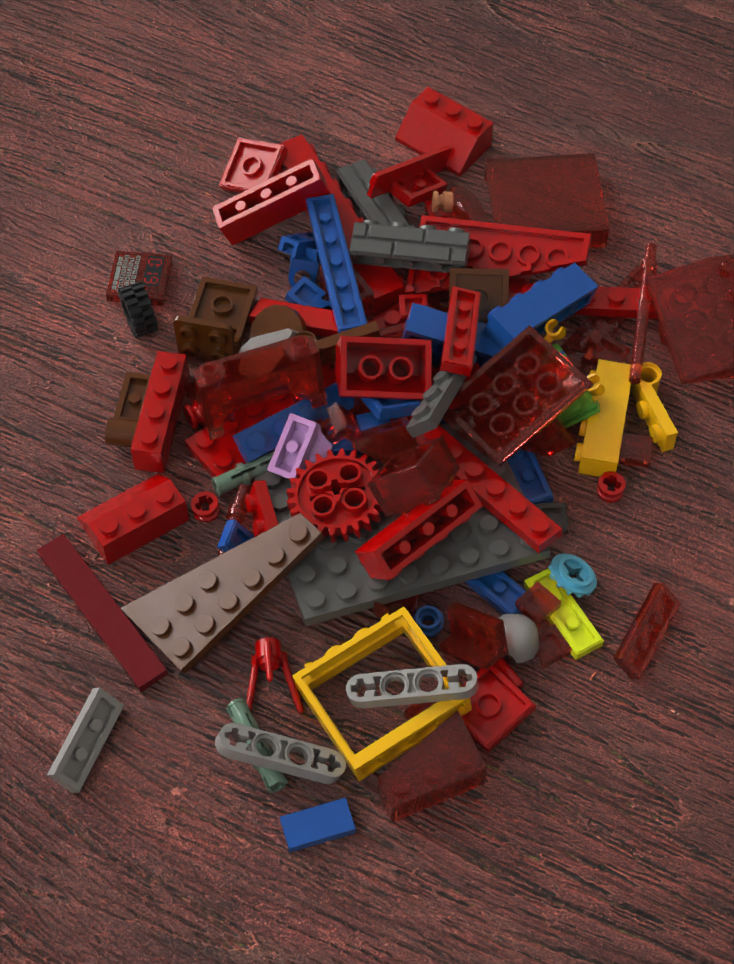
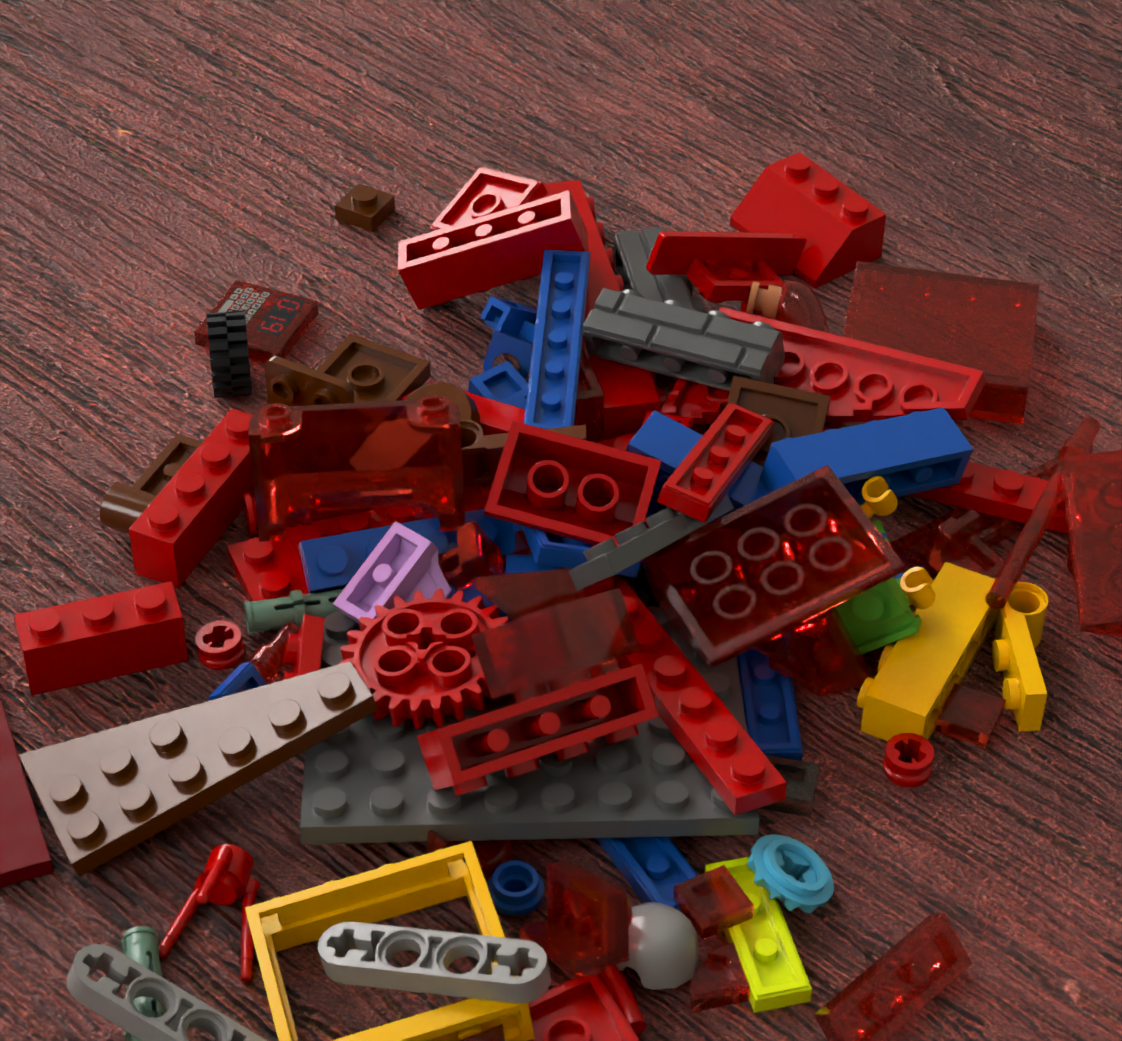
camera: 15 degrees right, 15 degrees down
(172, 177) = (364, 207): none -> reddish brown plate

